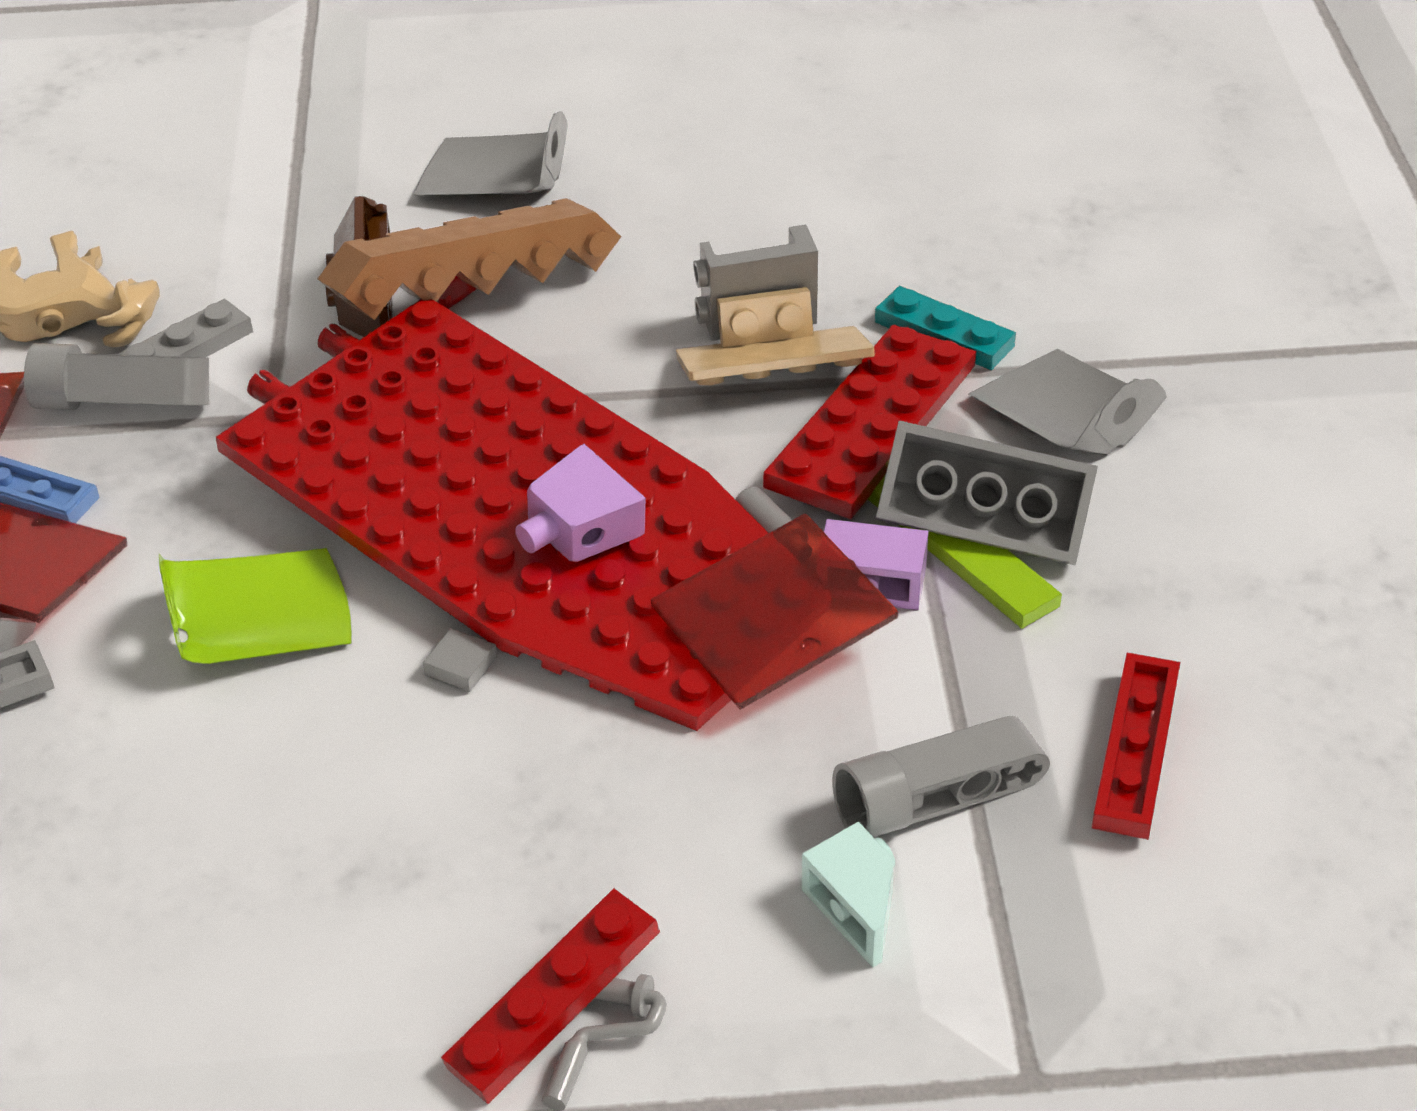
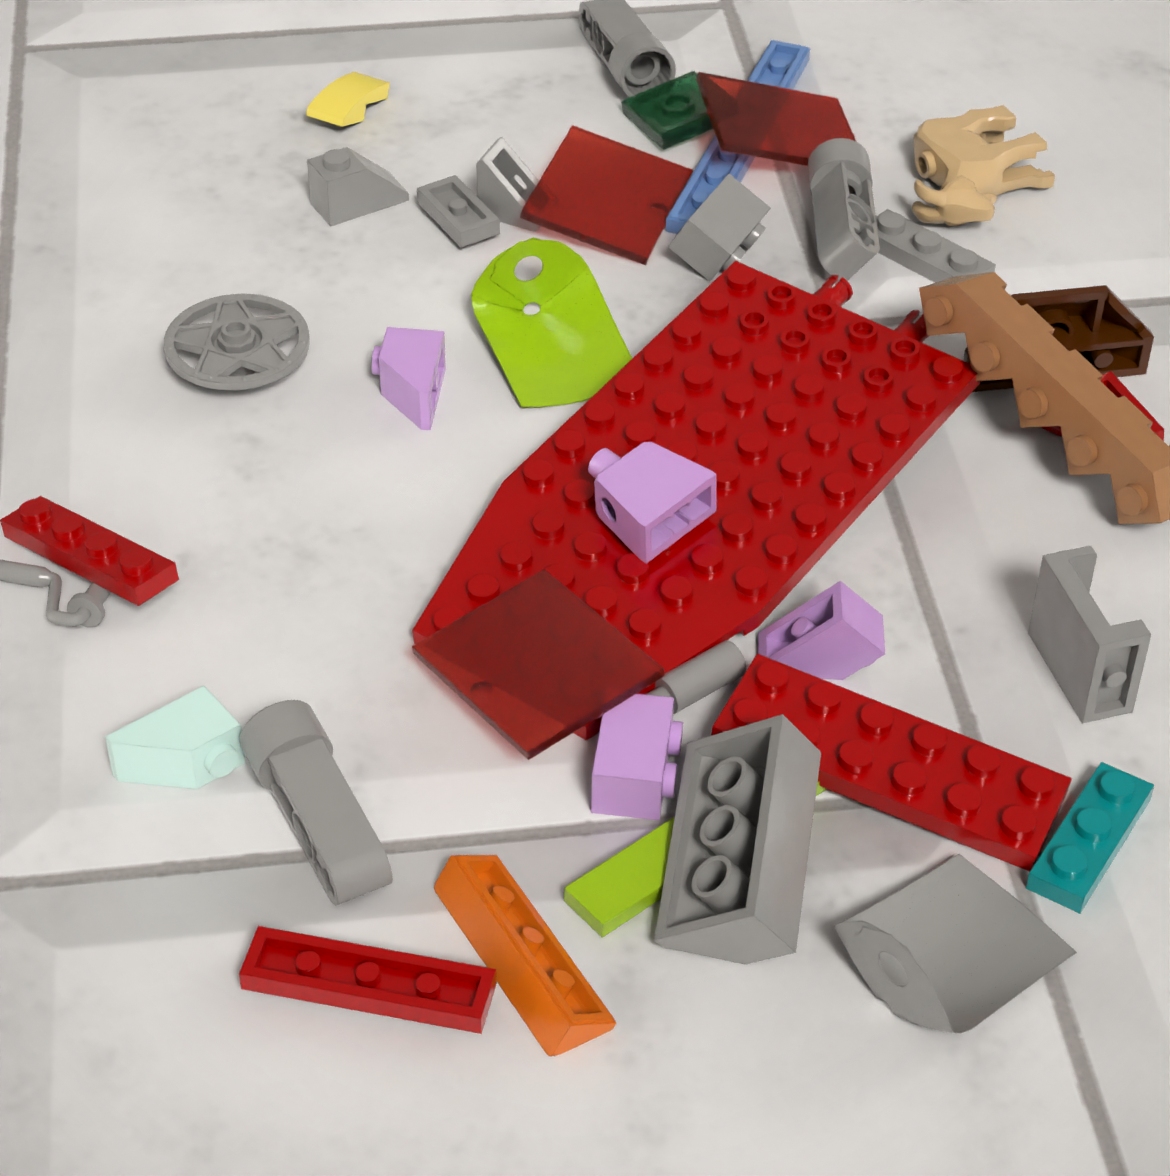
camera: 85 degrees right, 0 degrees up
(118, 465) = (720, 227): none -> light grey brick
(204, 871) = (236, 342): none -> light grey wheel
(298, 716) = (411, 371): none -> lavender slope
(460, 659) = (490, 470): light grey tile -> none
(735, 440) = (827, 635): none -> lavender slope
(771, 334) = (993, 664): tan bracket -> none
(1084, 653) = (524, 951): none -> orange slope

